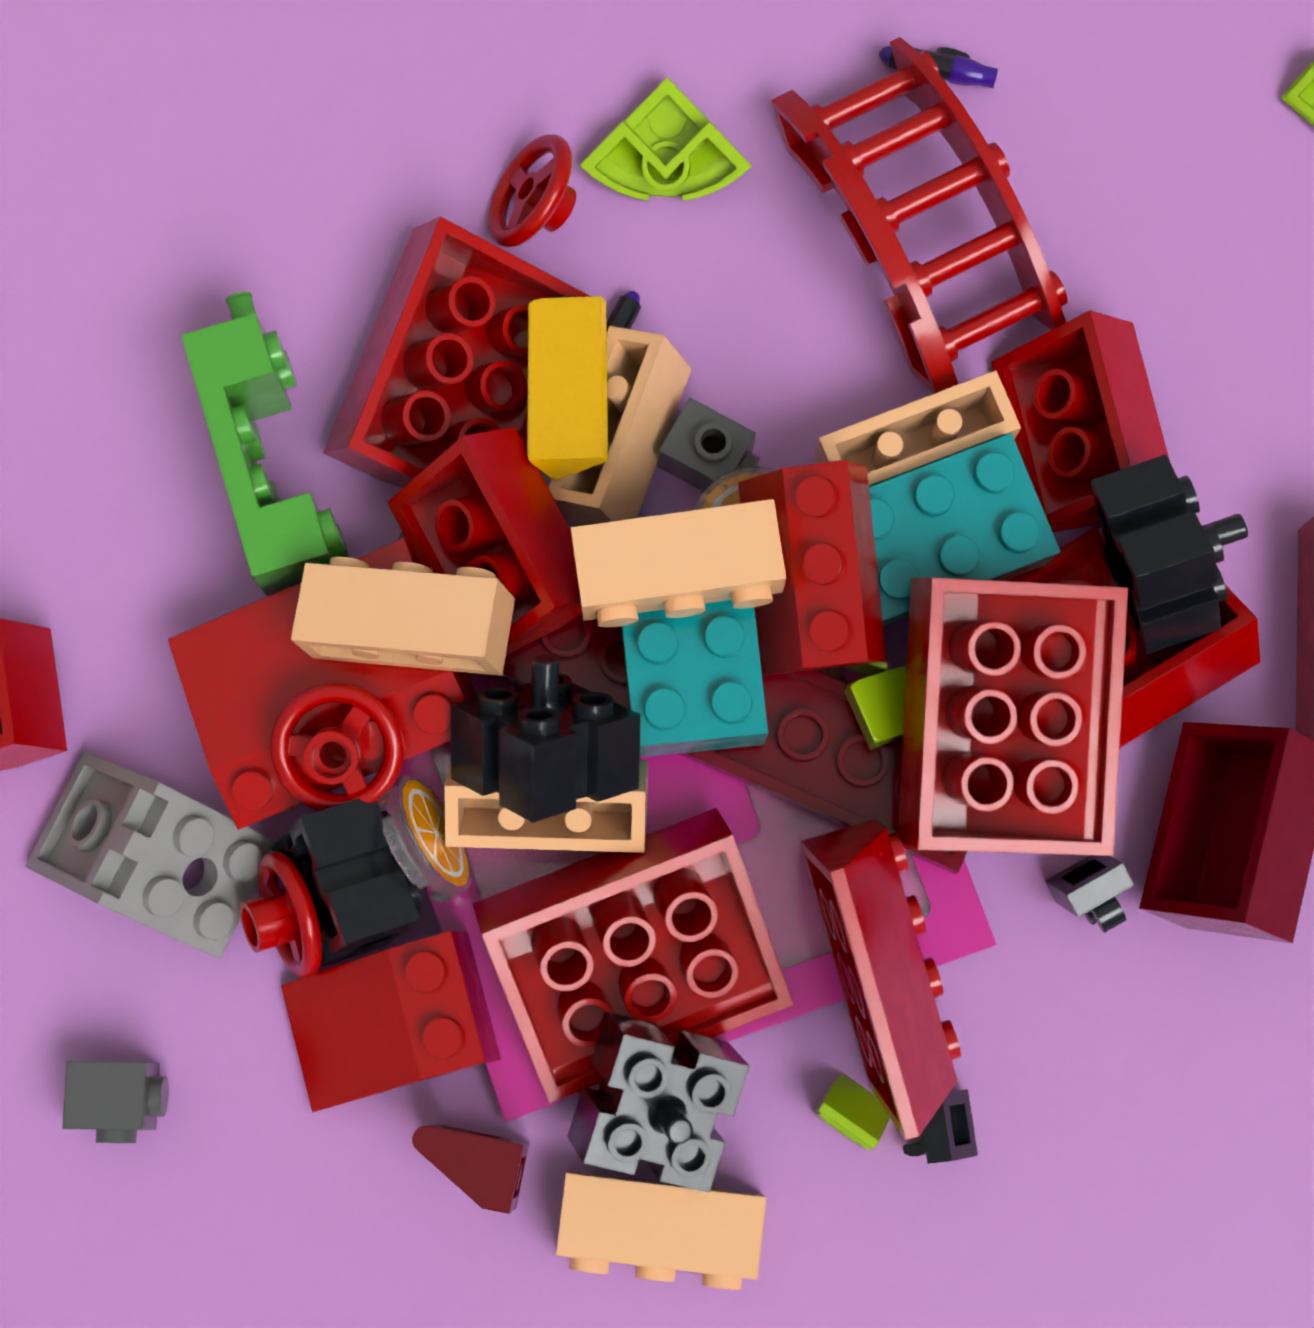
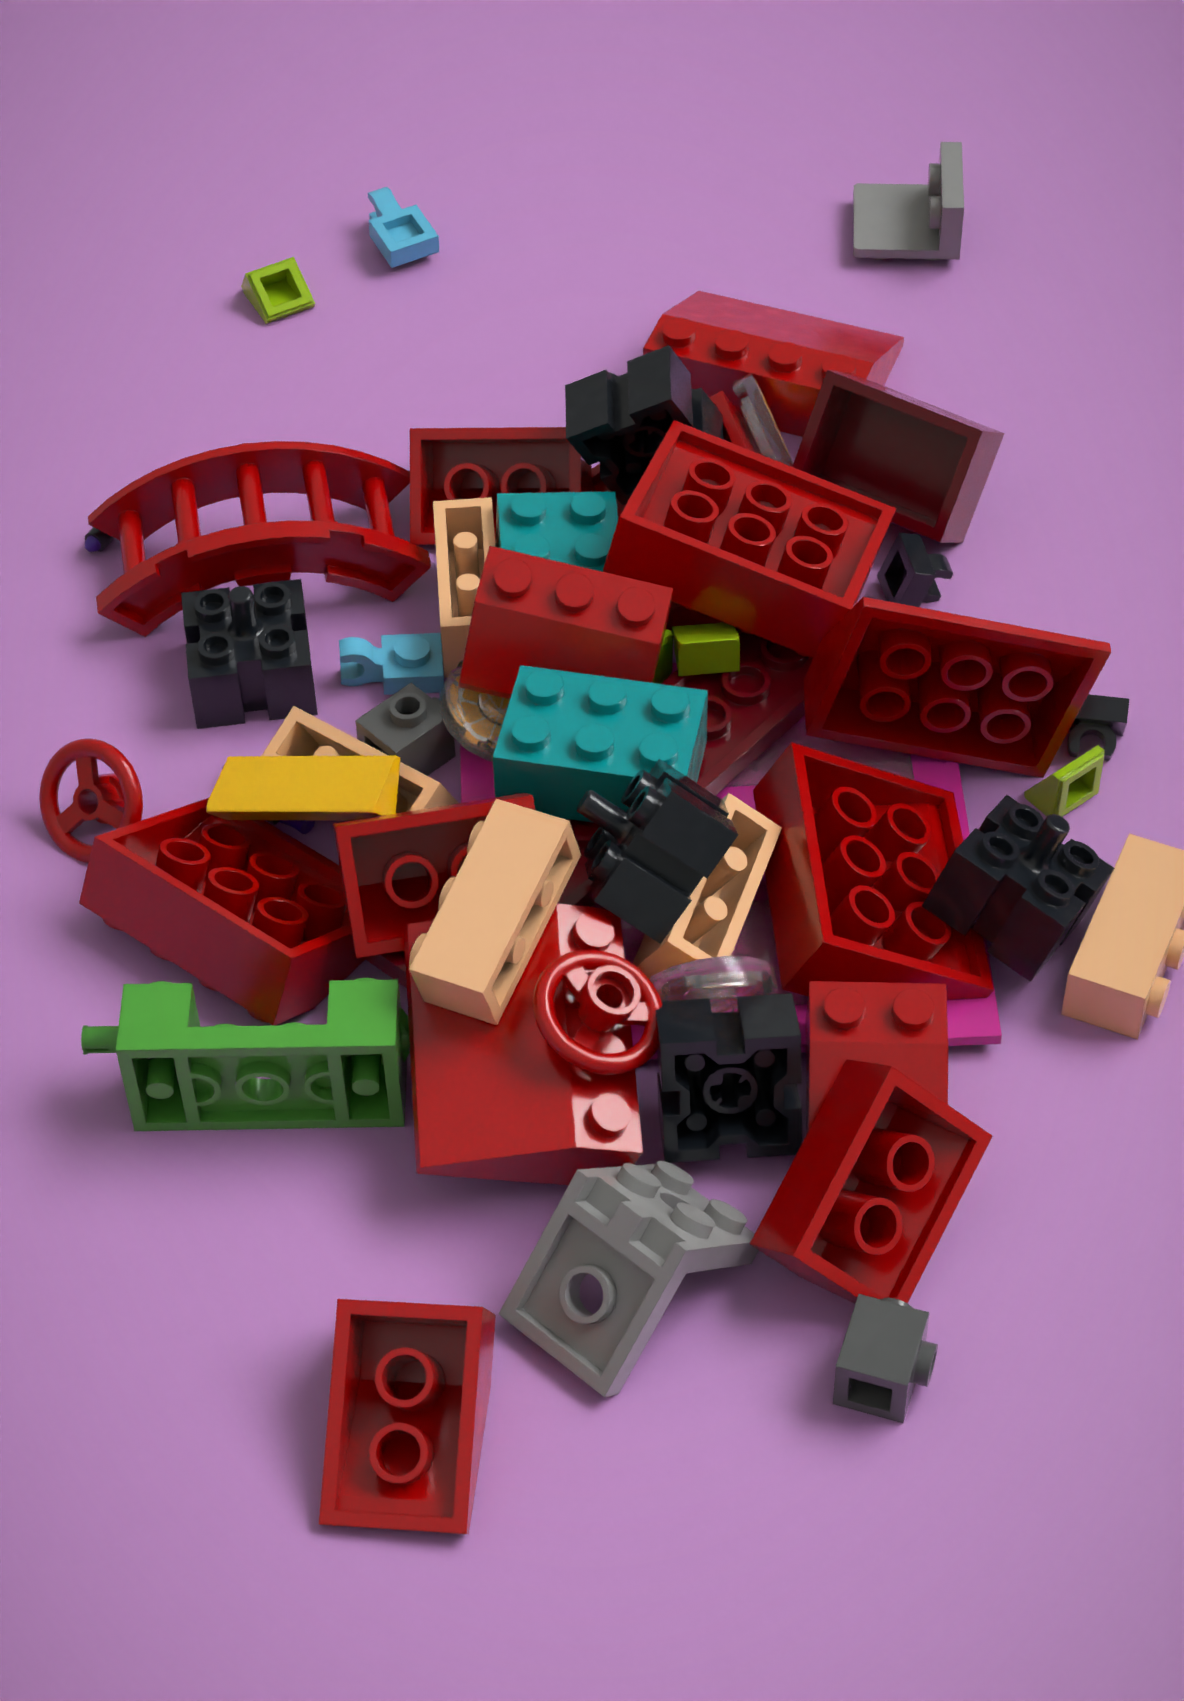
camera: 70 degrees left, 30 degrees down
(261, 1044) = (871, 1185): none -> red slope
(283, 919) = (734, 1171): red piece -> none
(478, 1163) = (1042, 1038): dark red tile -> none
(666, 151) = (100, 702): lime brick -> none
(679, 562) = (531, 687): light nougat brick -> none
(767, 261) = (248, 652): none -> black brick
(815, 407) = (397, 663): none -> medium azure plate
(1247, 679) = (761, 420): none -> clear tile

